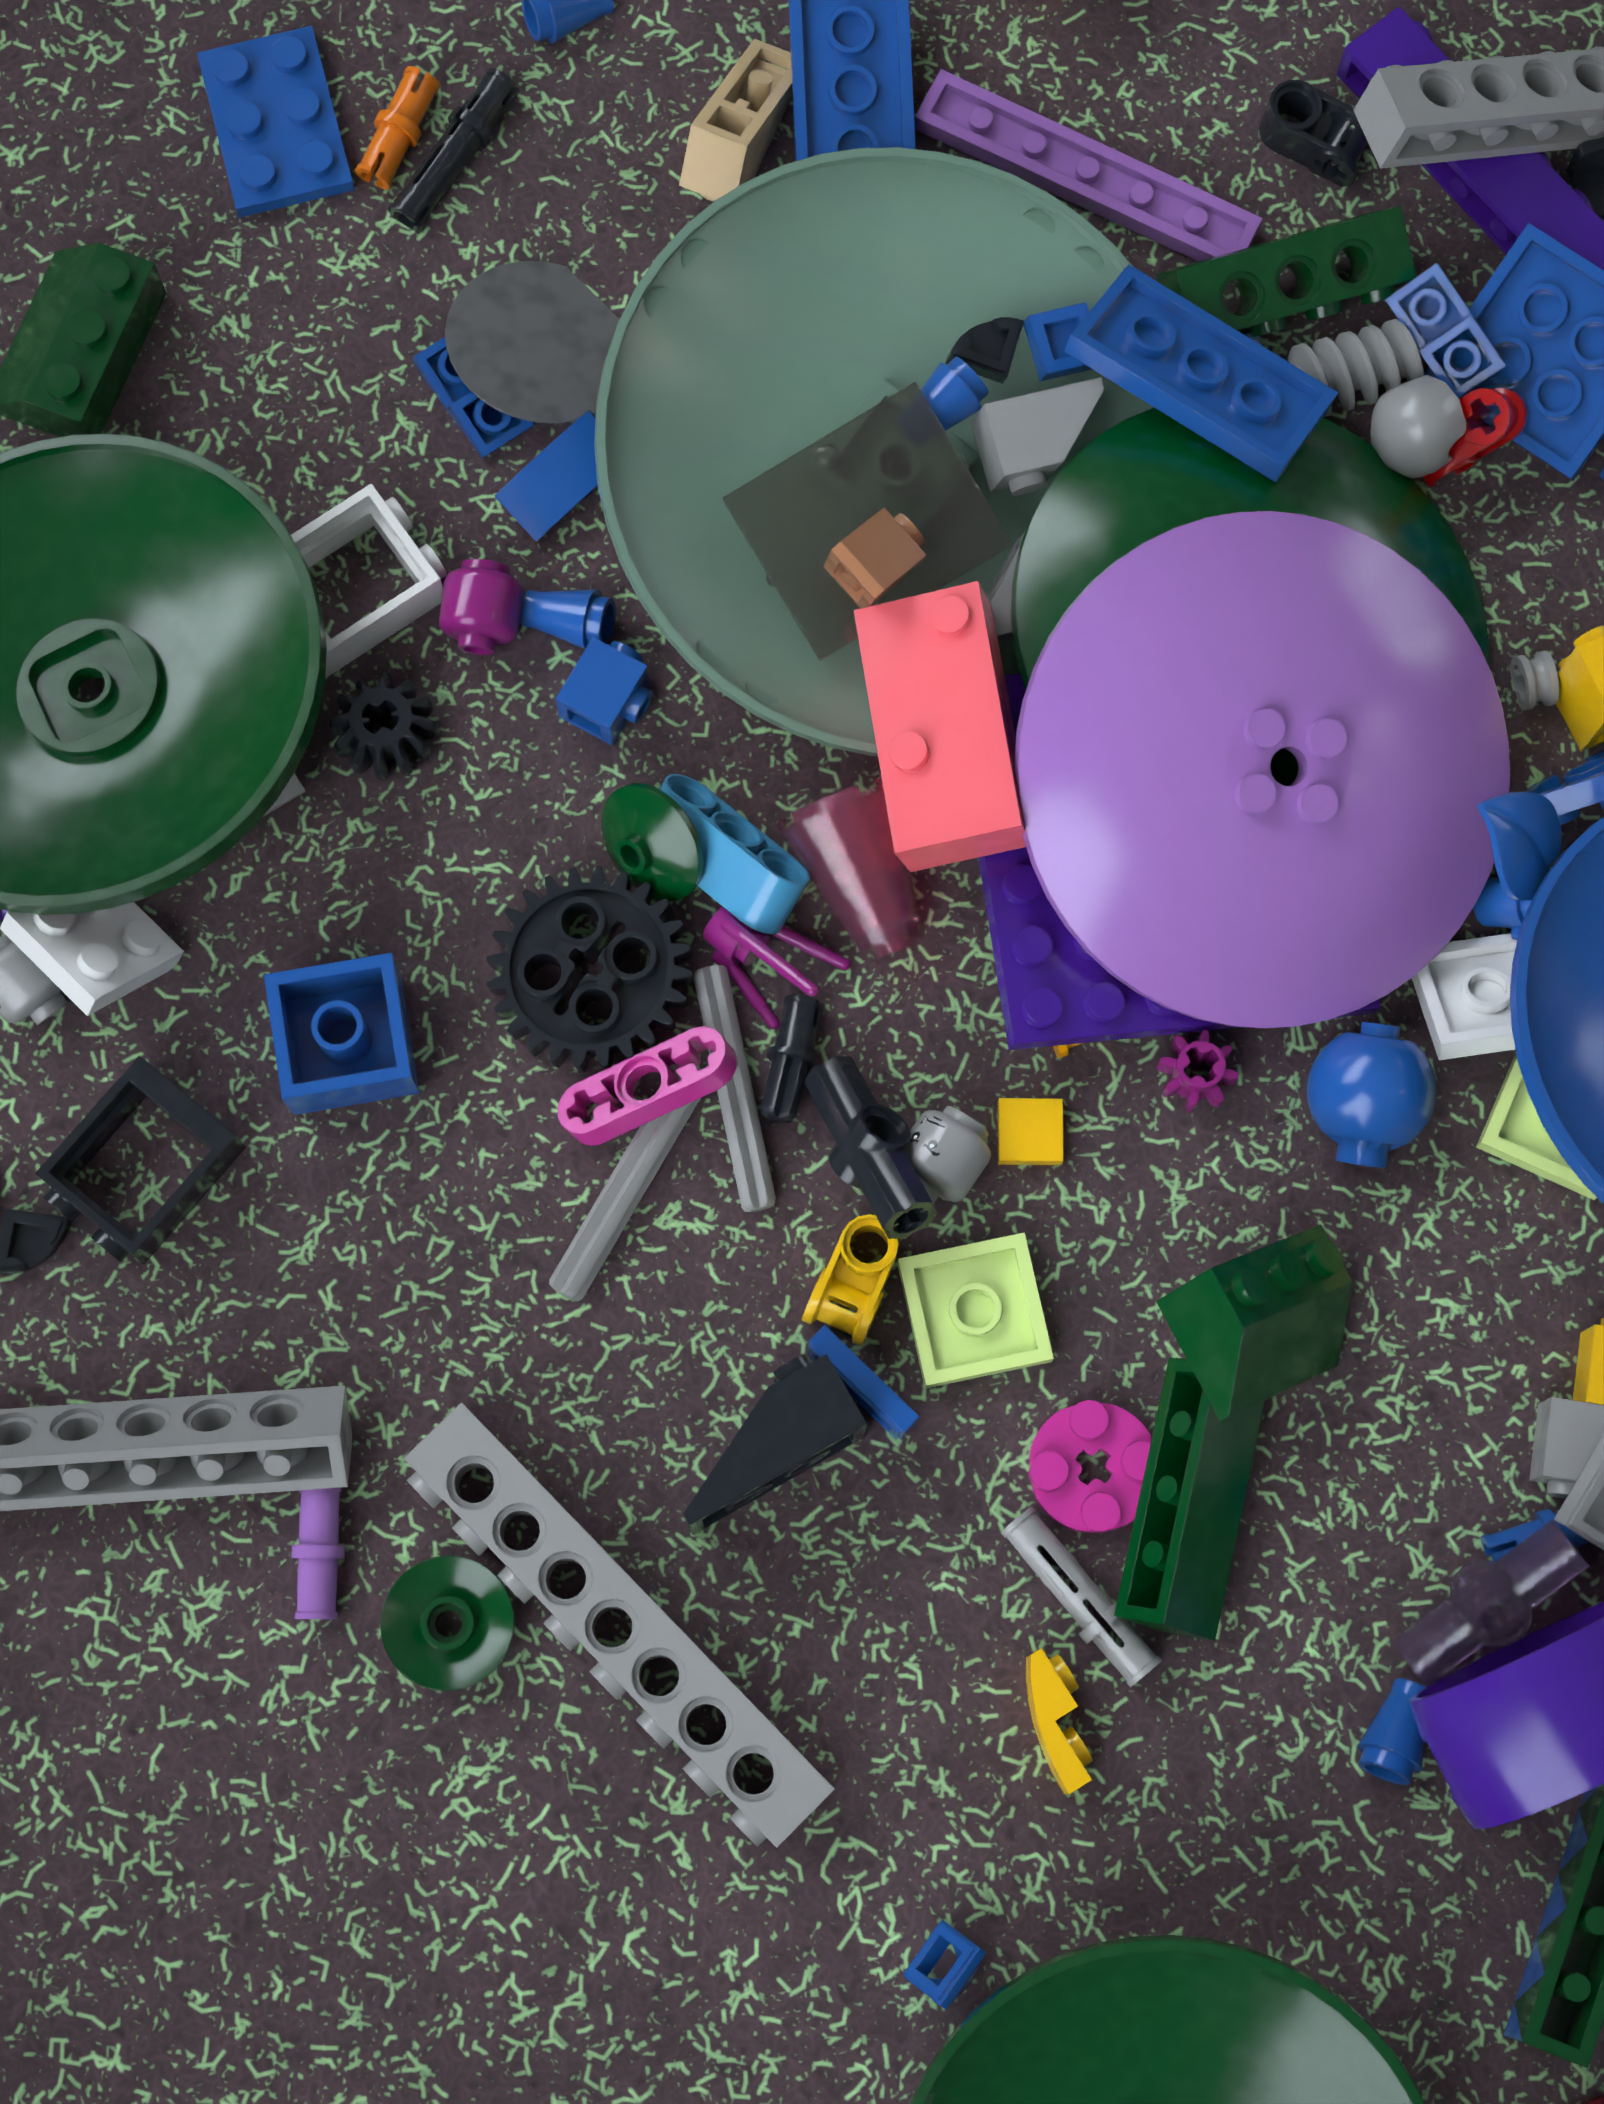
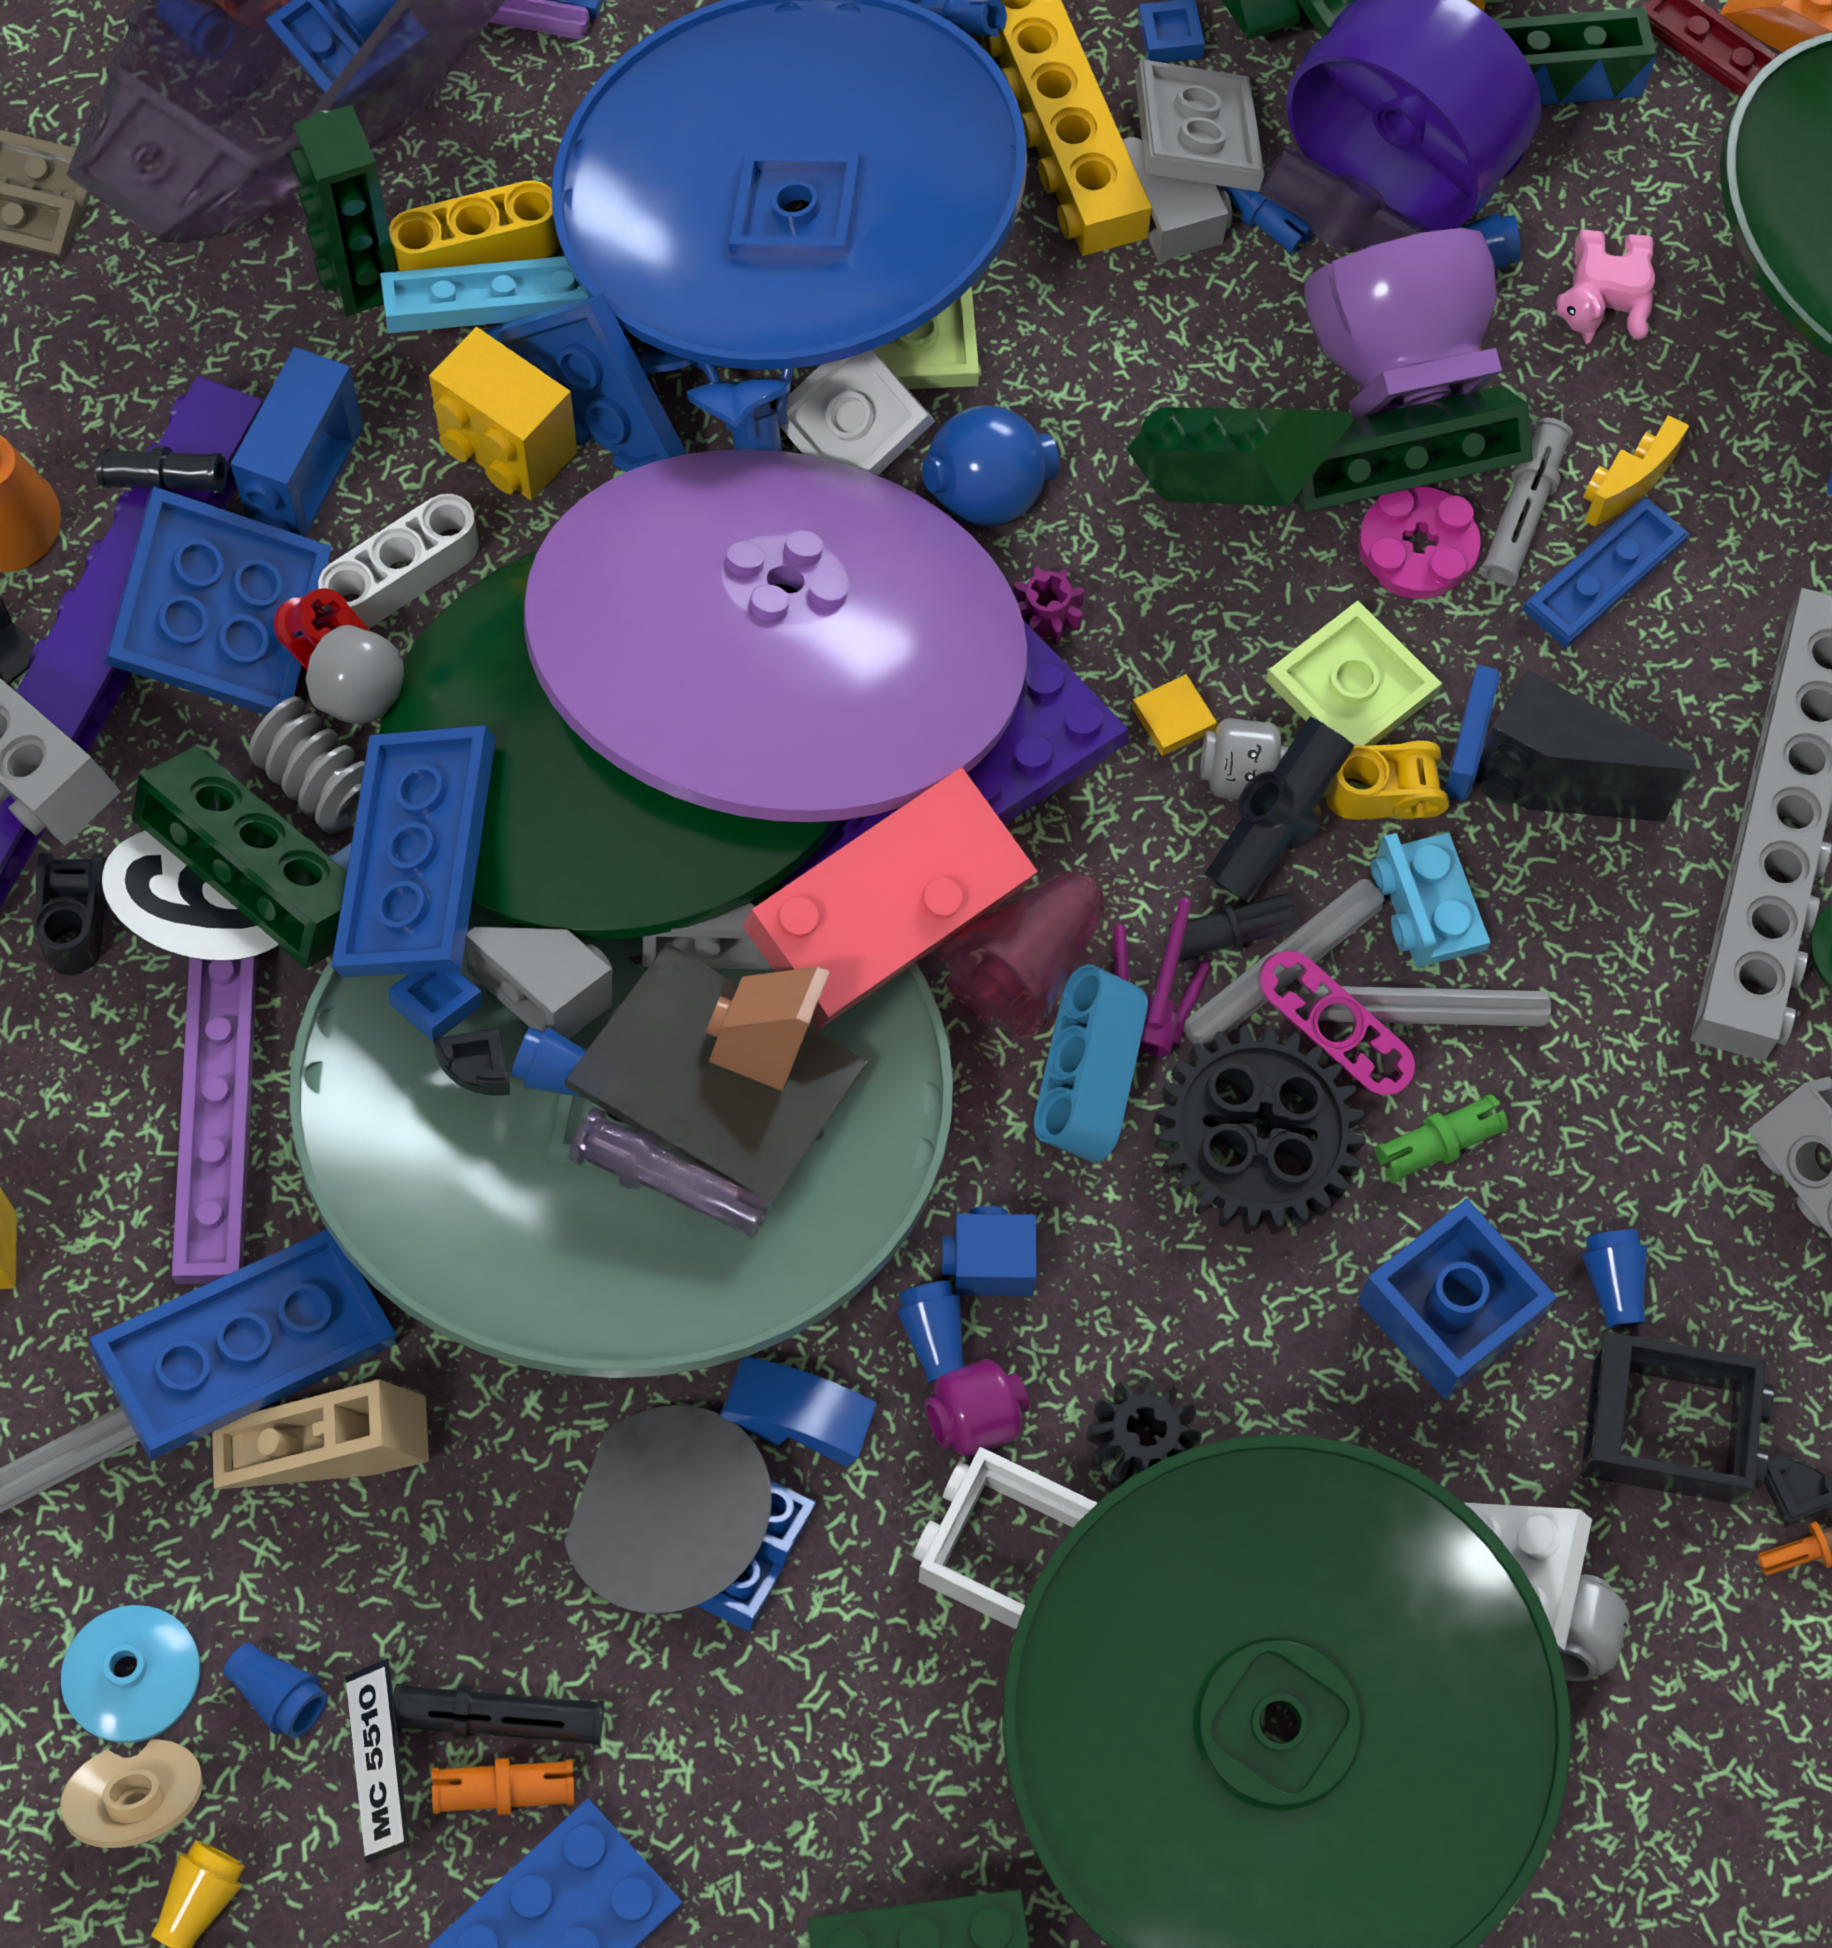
camera: 120 degrees left, 10 degrees down
(293, 1198) = (1618, 1275): none -> blue cone
(468, 50) = (377, 1761): none -> white sticker
(498, 1125) = (1441, 1138): none -> bright green pin
(652, 841) = (1119, 1125): dark green dish -> none
(724, 1249) = (1430, 898): none -> medium azure bracket
(814, 415) = (642, 1162): none -> clear purple pin
(969, 1632) = (1605, 572): none -> blue tile
(1263, 192) = (174, 906): none -> white sticker
(1292, 1834) = (1610, 282): none -> bright pink animal
(1308, 1561) = (1407, 318): none -> medium lavender plate
(1445, 331) = (242, 696): blue slope -> none
(1535, 680) = (537, 503): light grey bush -> none
(1537, 508) = (408, 539): none -> white beam

